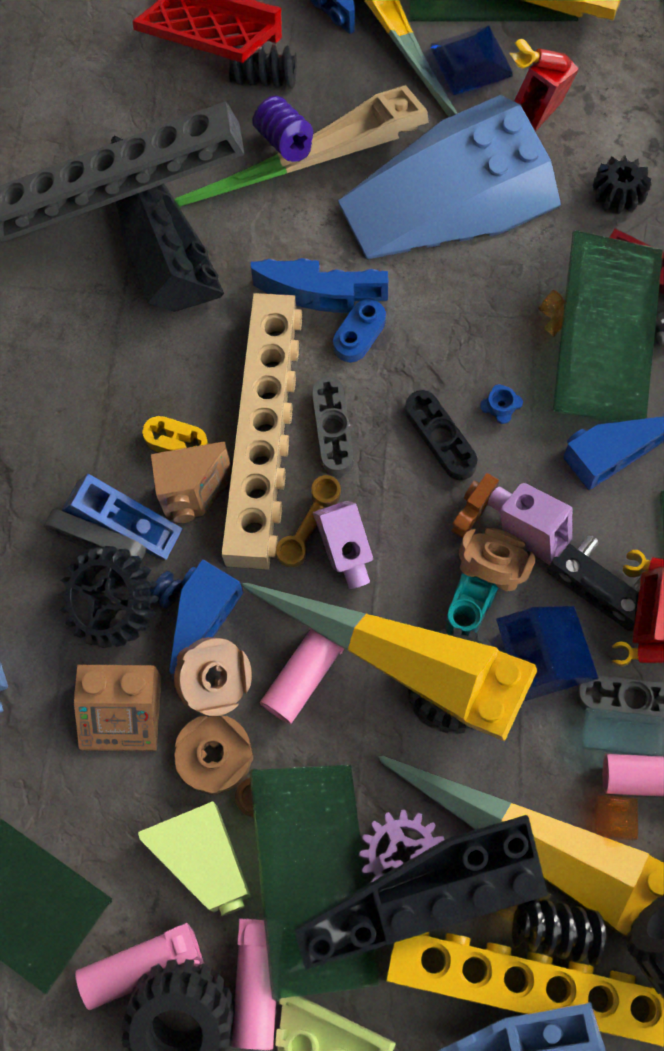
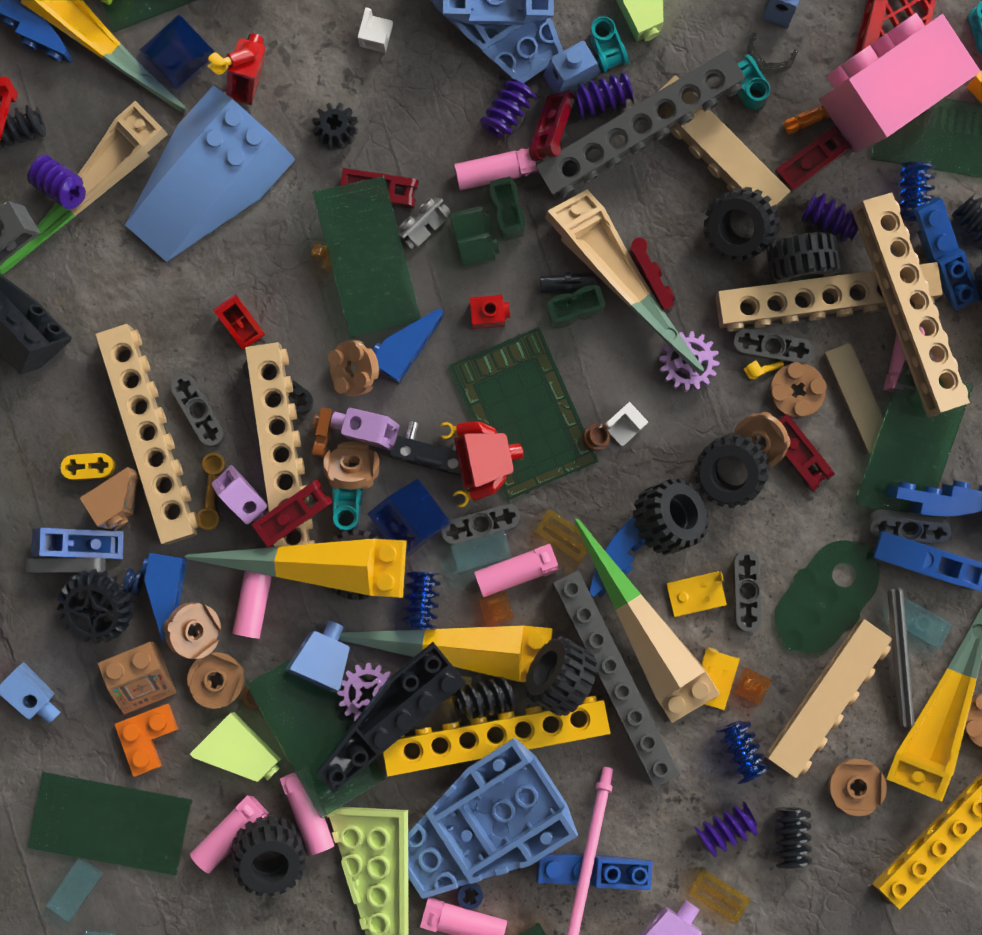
camera: 25 degrees left, 15 degrees up
(84, 782) = (138, 735): none -> orange plate
(319, 290) = (129, 306): blue slope -> none
(361, 328) = (186, 325): blue plate -> none
(361, 782) = (321, 658): none -> medium blue torso
(400, 579) = (291, 514): none -> dark red plate
(424, 343) = (239, 321): none -> red slope
(434, 391) = (258, 359): none -> tan brick
(501, 394) = (309, 336): blue plate -> none
(521, 759) = (421, 600): none -> clear blue piece
(529, 434) = (341, 362): none -> medium nougat plate

